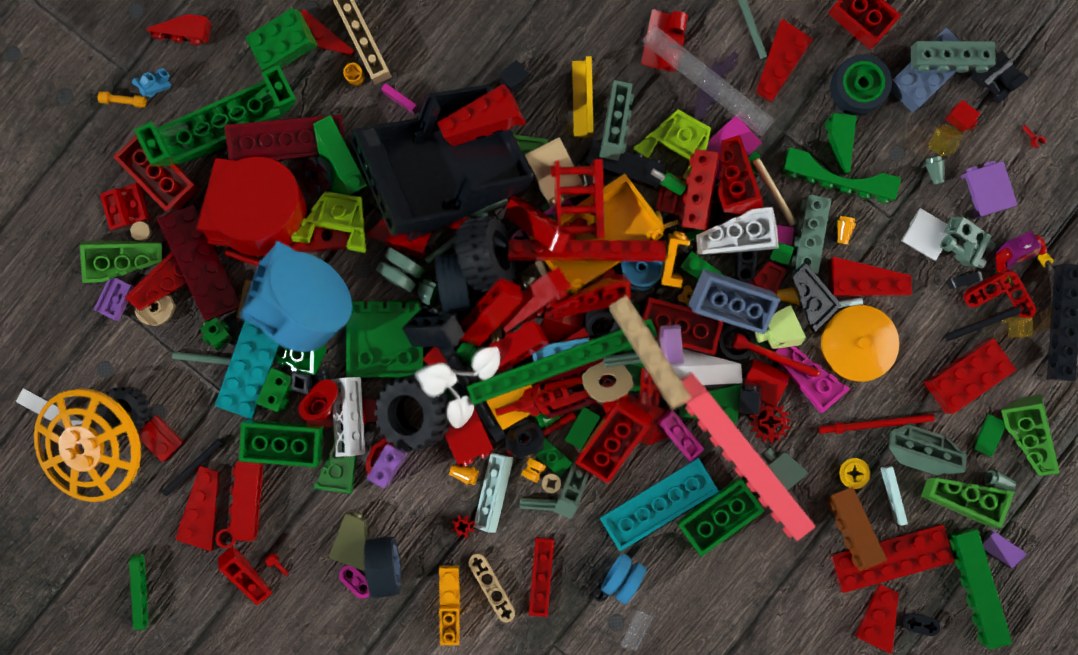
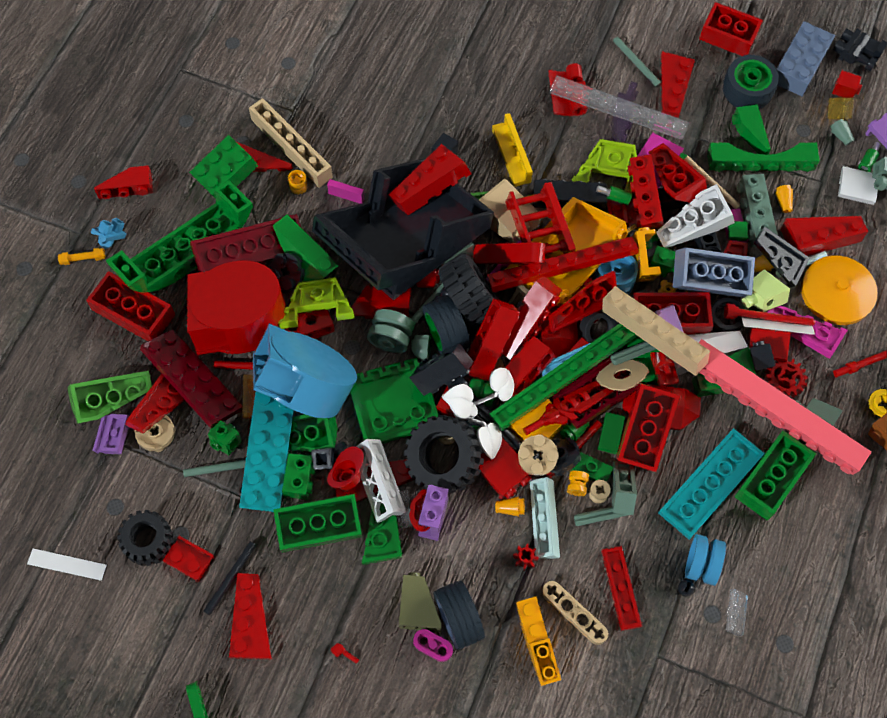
camera: 20 degrees left, 20 degrees down
(91, 441) = (125, 579): light orange dish -> none
(124, 206) = (104, 349): red slope -> none
(140, 231) = (125, 366): tan tile -> none
(243, 575) = (313, 673): red slope -> none
(245, 505) = (296, 597): red hinge -> none
(496, 448) = (537, 467): none -> tan plate
(616, 119) = (550, 156): sand green brick -> none
(680, 435) = (708, 410): dark pink tile -> none
(780, 369) = (775, 325): none -> white sticker
(951, 207) = (869, 158): none -> green piece
(952, 56) = (819, 36): sand green brick -> none

